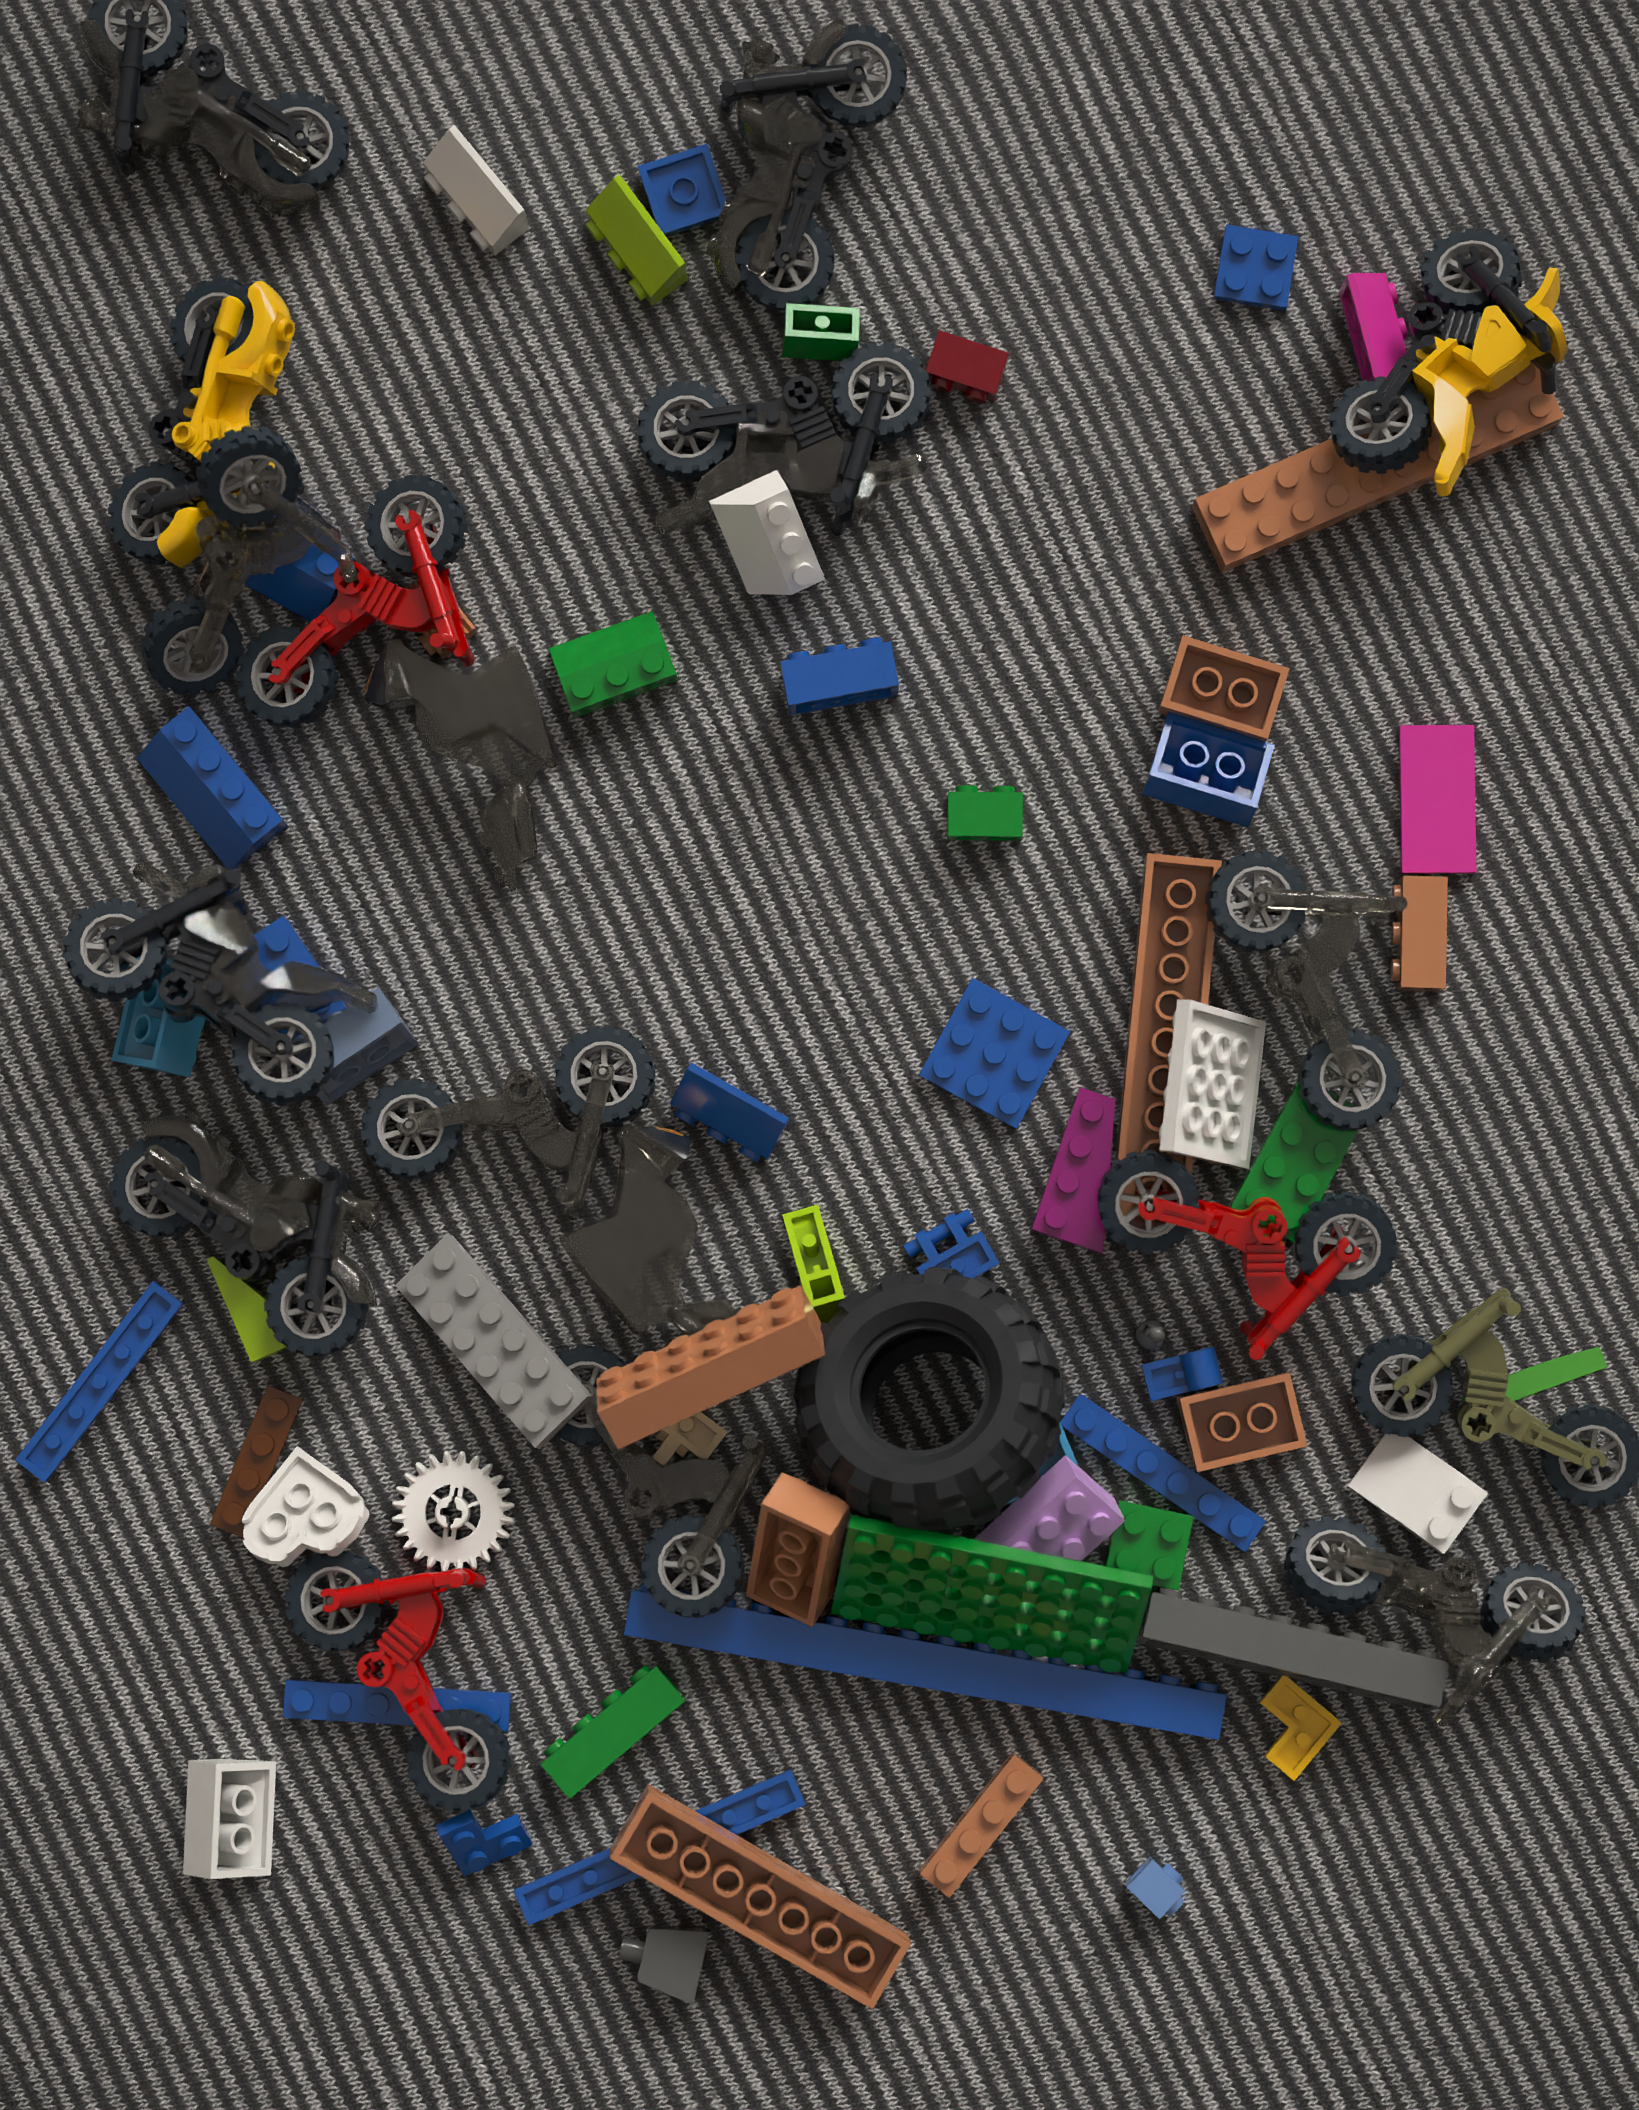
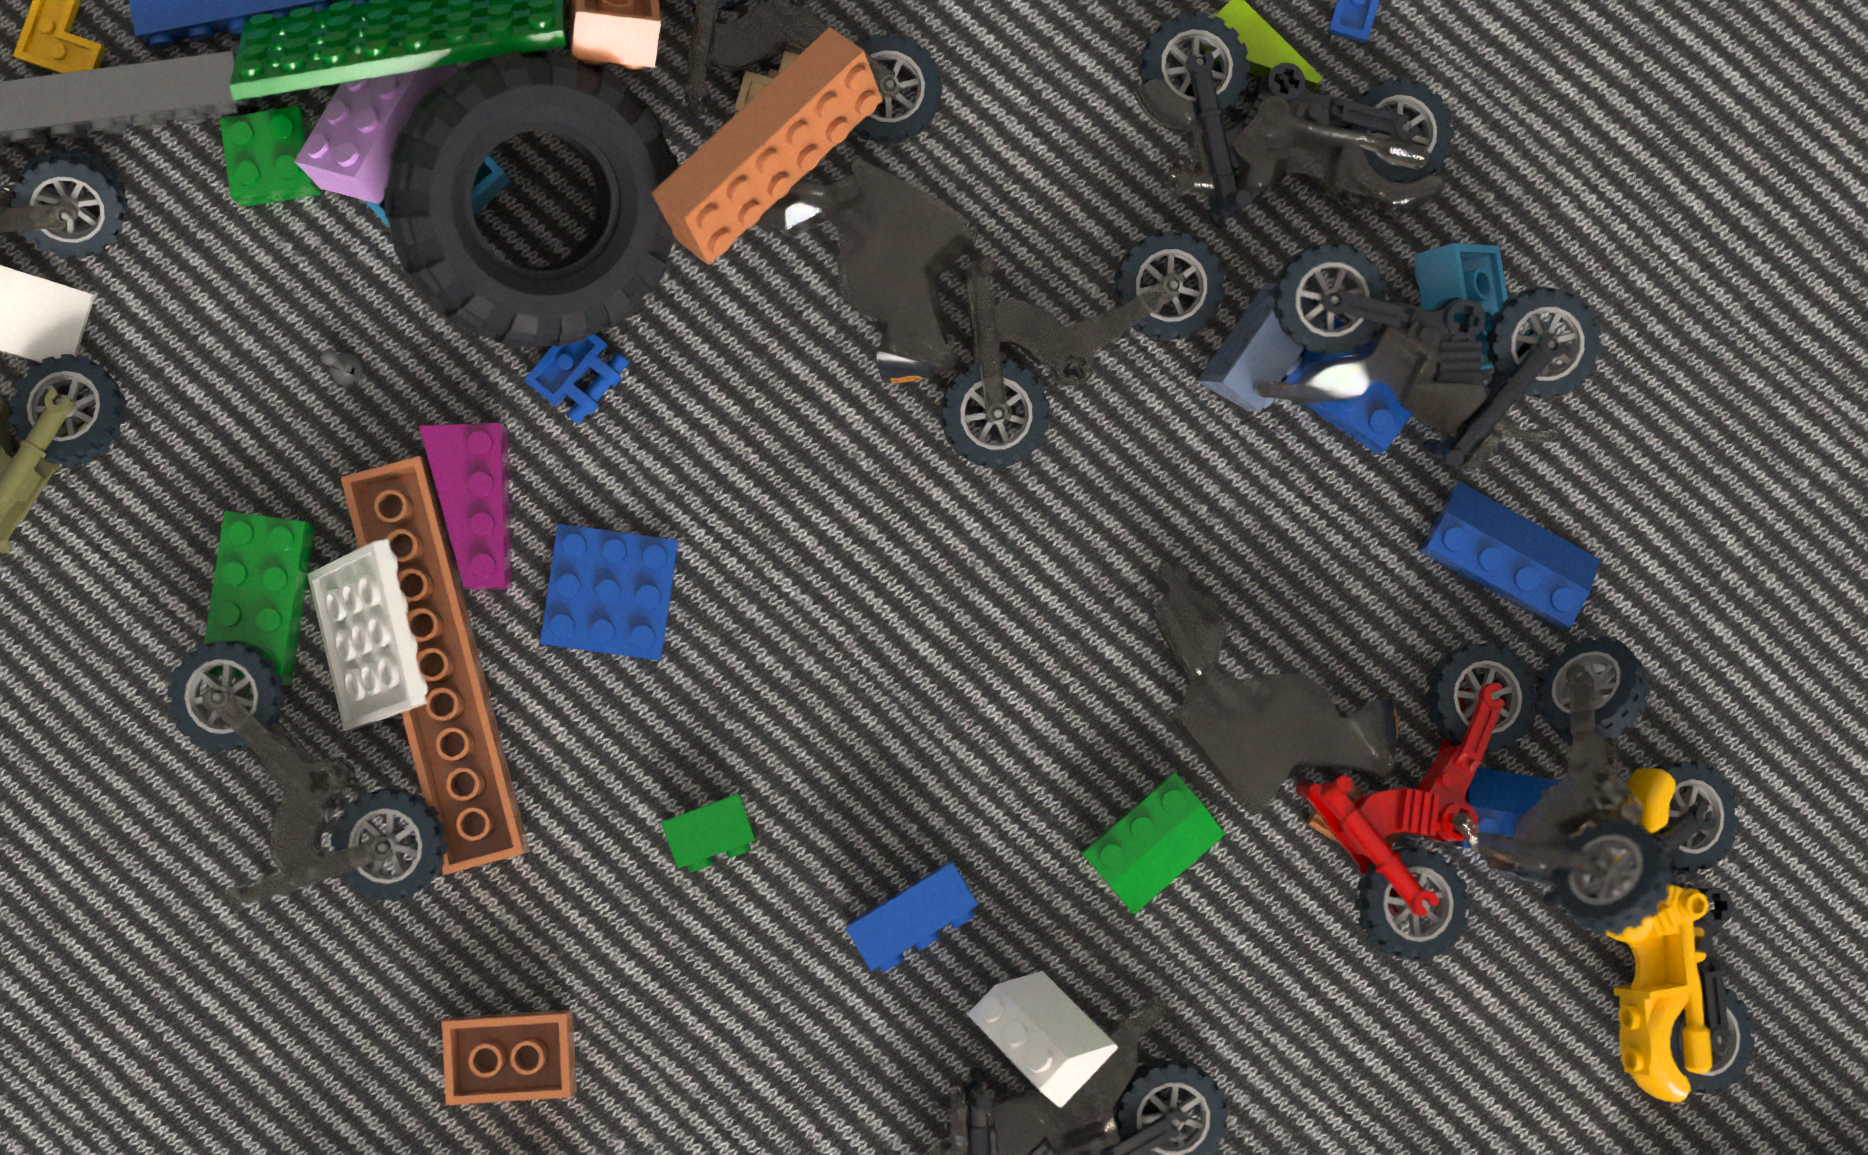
camera: 155 degrees right, 0 degrees up
(494, 1341) = (1001, 104): light grey plate -> none
(728, 1113) = (853, 425): blue slope -> none
(814, 1261) = (710, 308): lime slope -> none
(1162, 1472) = (282, 236): blue plate -> none
(1182, 1373) = (298, 341): blue plate -> none
(1208, 769) = (494, 967): blue slope -> none
(1241, 1422) = (218, 312): nougat brick -> none
(1260, 1244) = (213, 443): piece -> none
(1420, 934) = (207, 870): nougat brick -> none
(1437, 799) = (249, 1029): dark pink tile -> none

